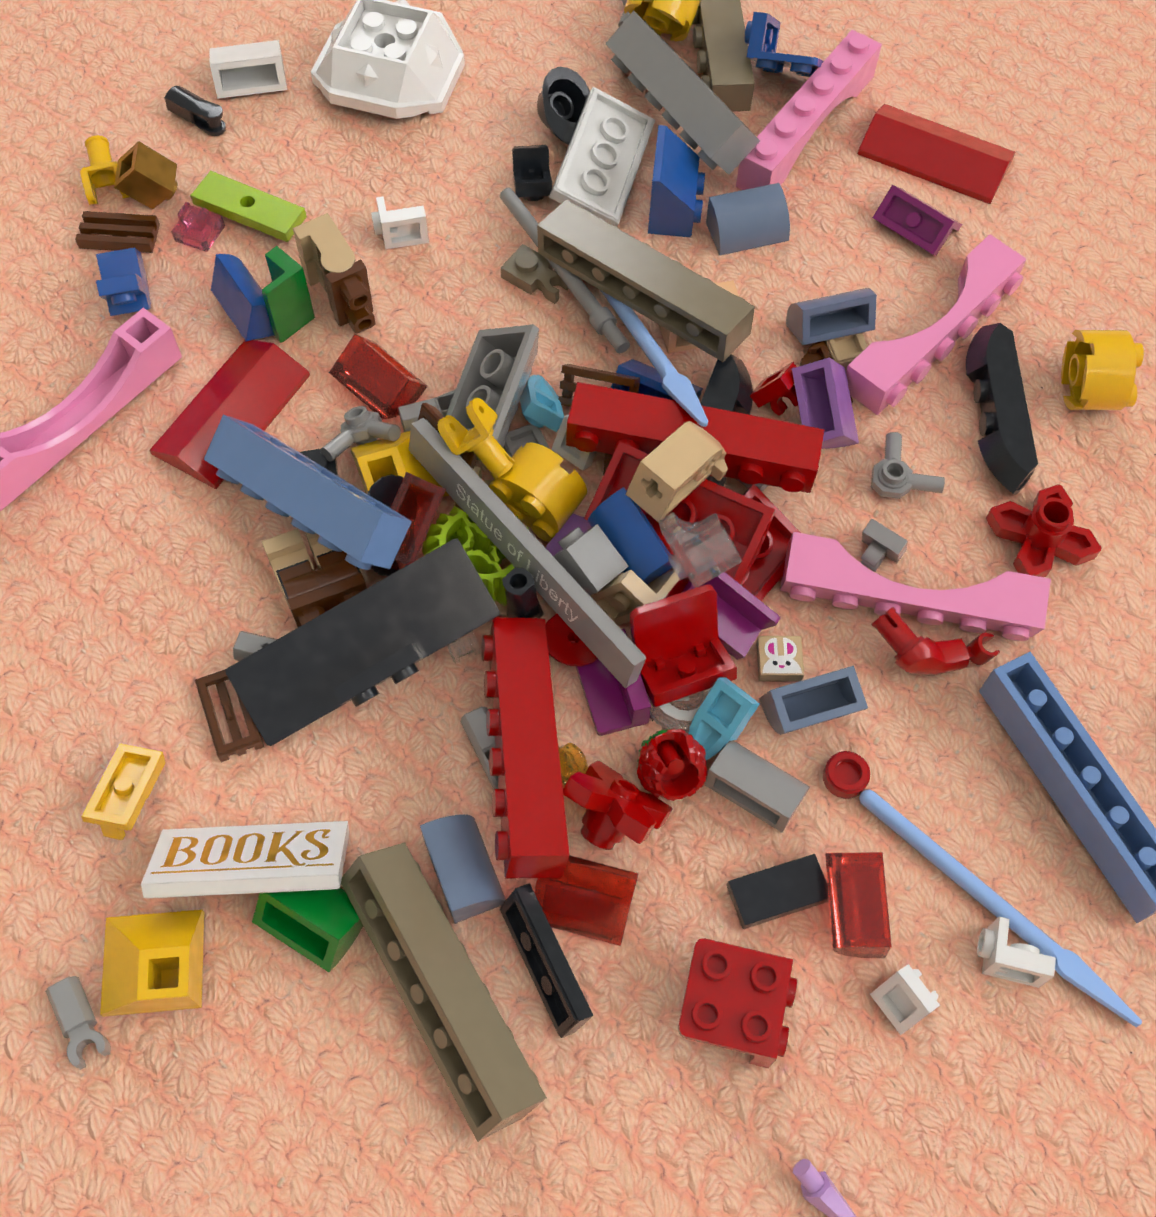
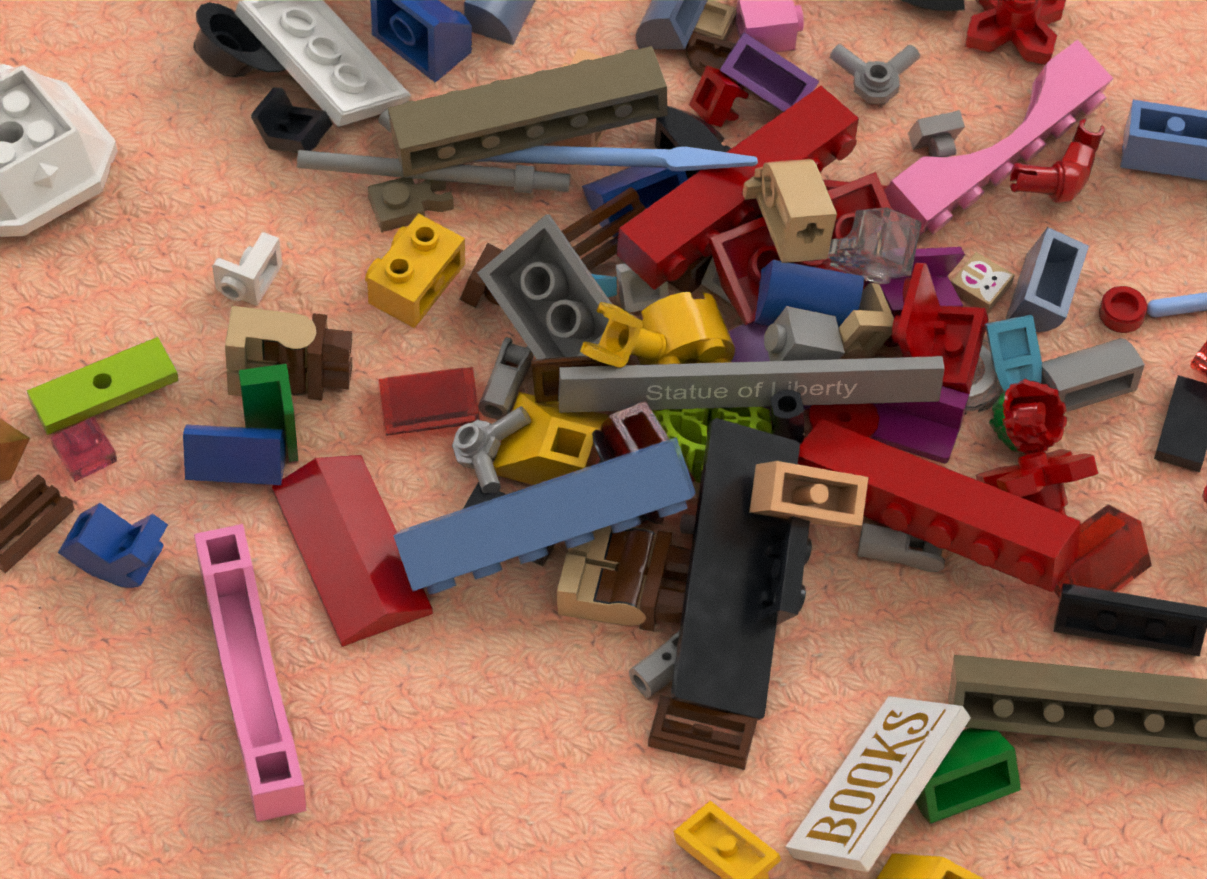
camera: 55 degrees left, 5 degrees down
(441, 643) = (809, 494): none -> light nougat brick
(462, 866) = (998, 633): sand blue brick -> none
(473, 305) = (415, 270): none -> yellow brick

